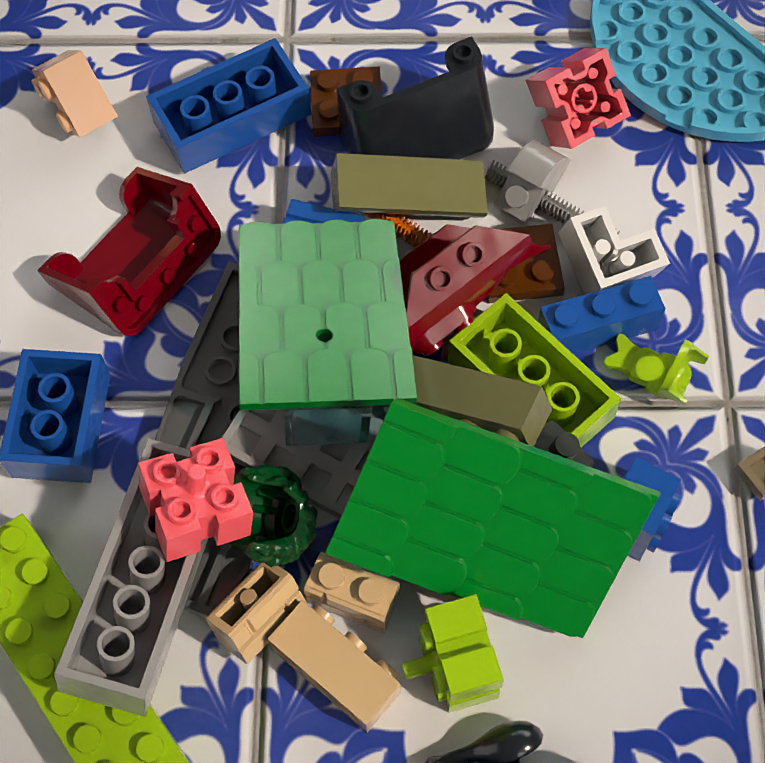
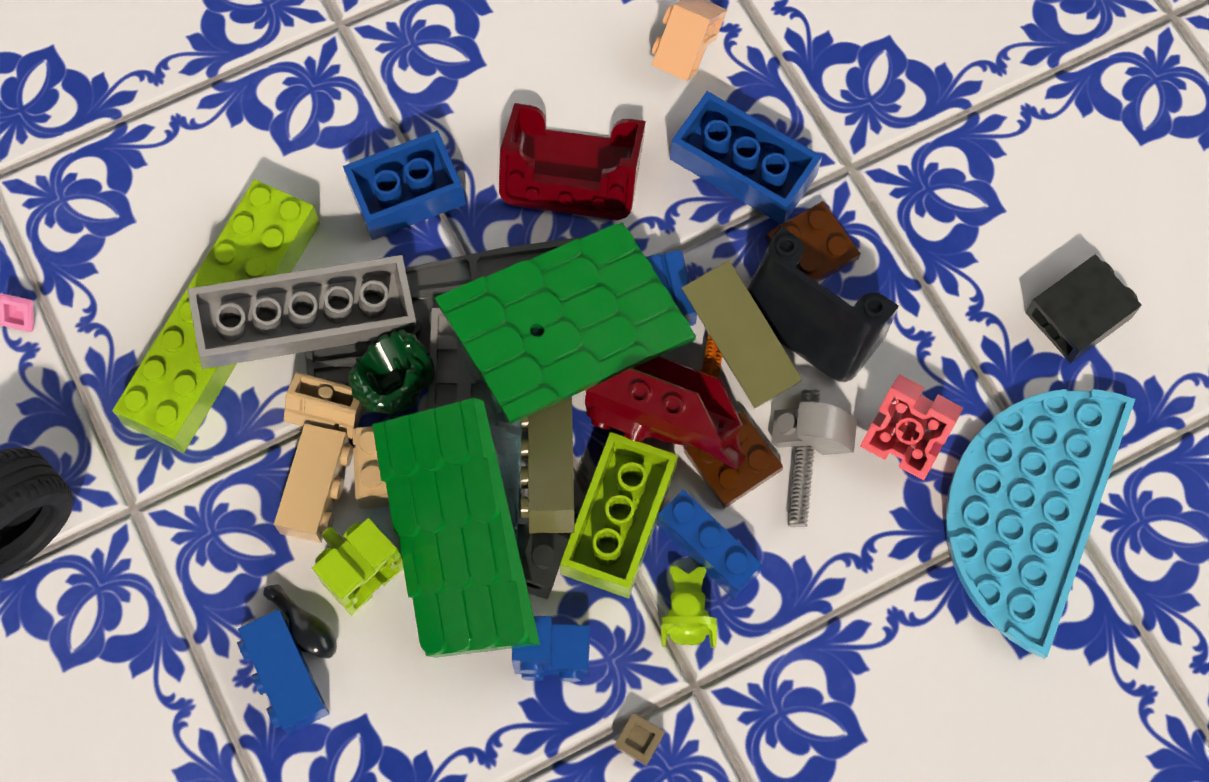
camera: 60 degrees right, 5 degrees up
(195, 499) = (361, 310): coral brick -> none
(602, 258) = (759, 524): white brick -> none

